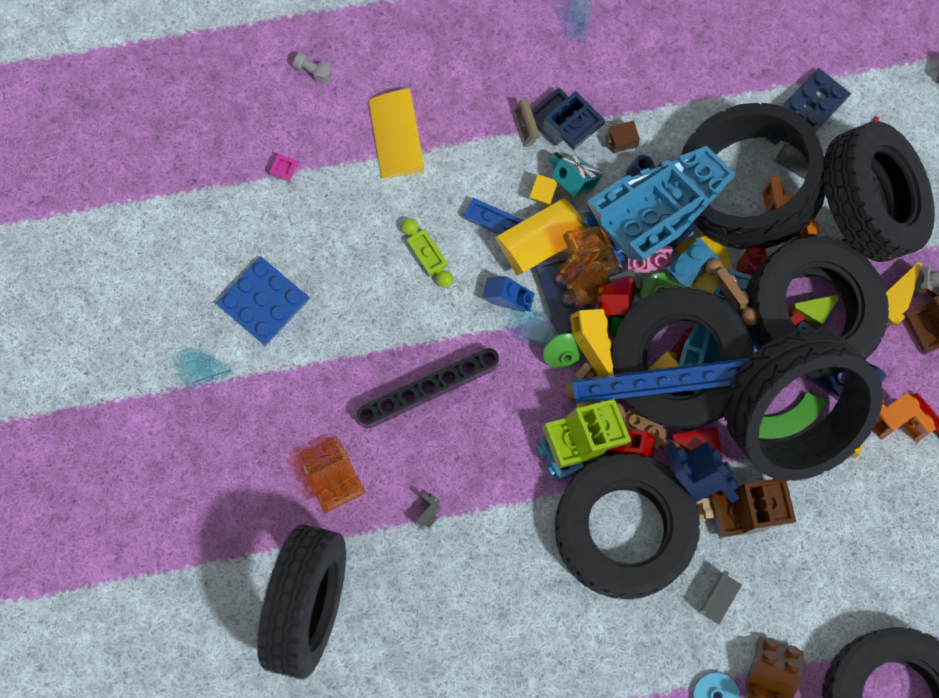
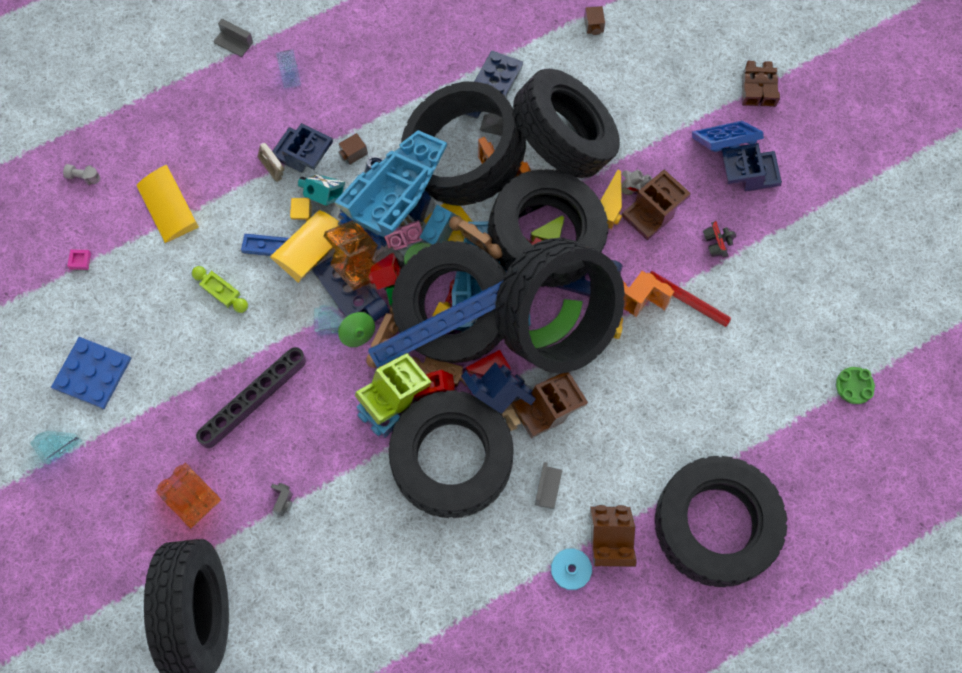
camera: 15 degrees left, 5 degrees down
(508, 294) = (296, 300): blue slope -> none
(591, 335) = (373, 310): yellow slope -> none
(751, 260) = (484, 208): clear red plate -> none

